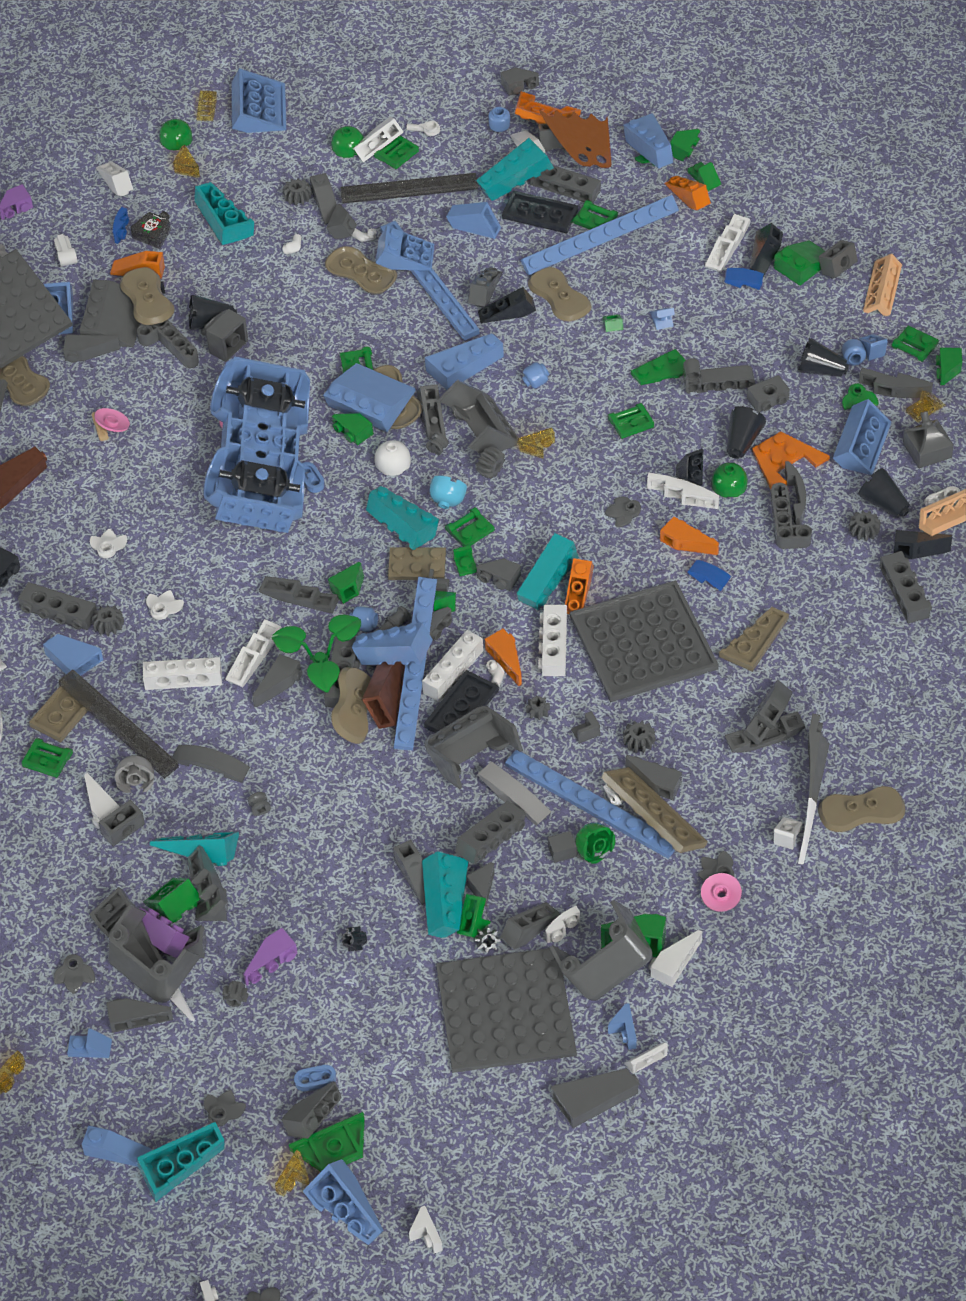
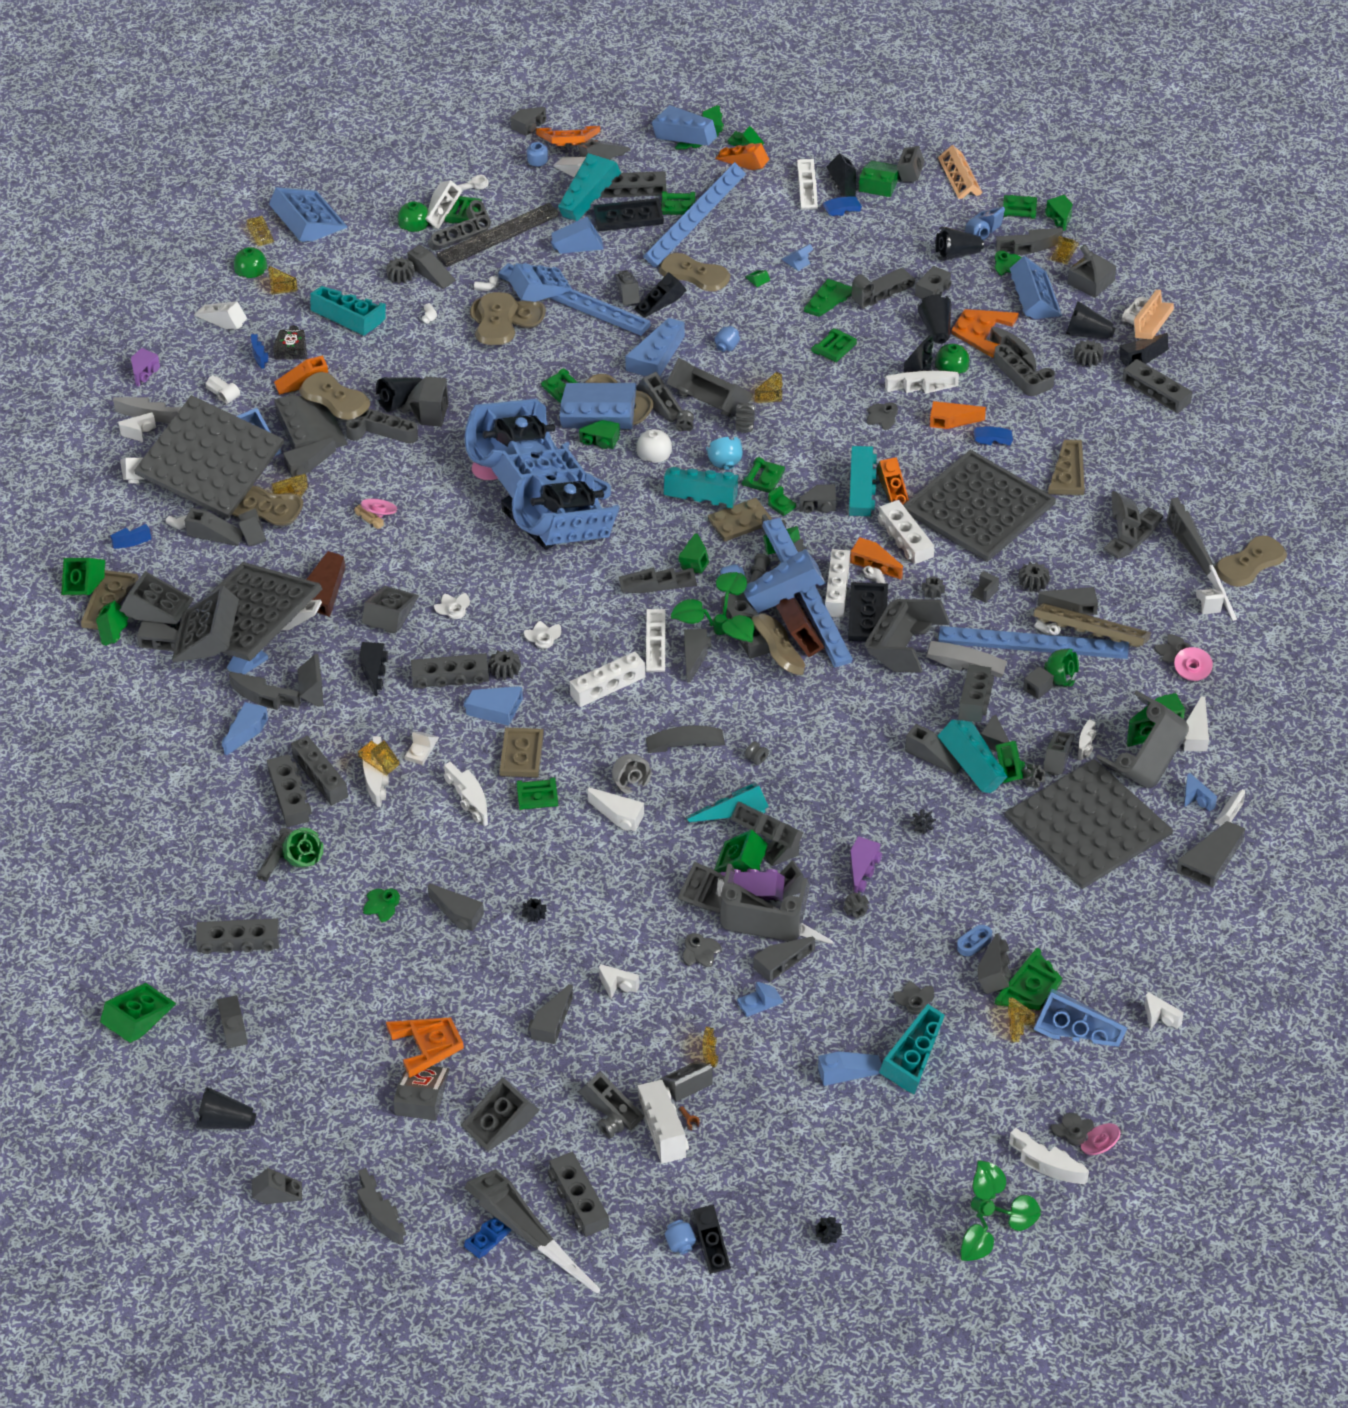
camera: 30 degrees left, 5 degrees down
(50, 522) = (388, 609): none -> dark grey slope
(55, 371) = (294, 485): none -> clear yellow slope
(118, 723) = (579, 737): clear smoke plate -> none
(121, 823) = (650, 814): dark grey brick -> none
(341, 223) = (463, 280): dark grey slope -> none
(347, 268) = (496, 318): none -> dark tan plate
(374, 169) = (458, 229): none -> dark grey beam
(579, 133) = (621, 143): dark orange piece -> none

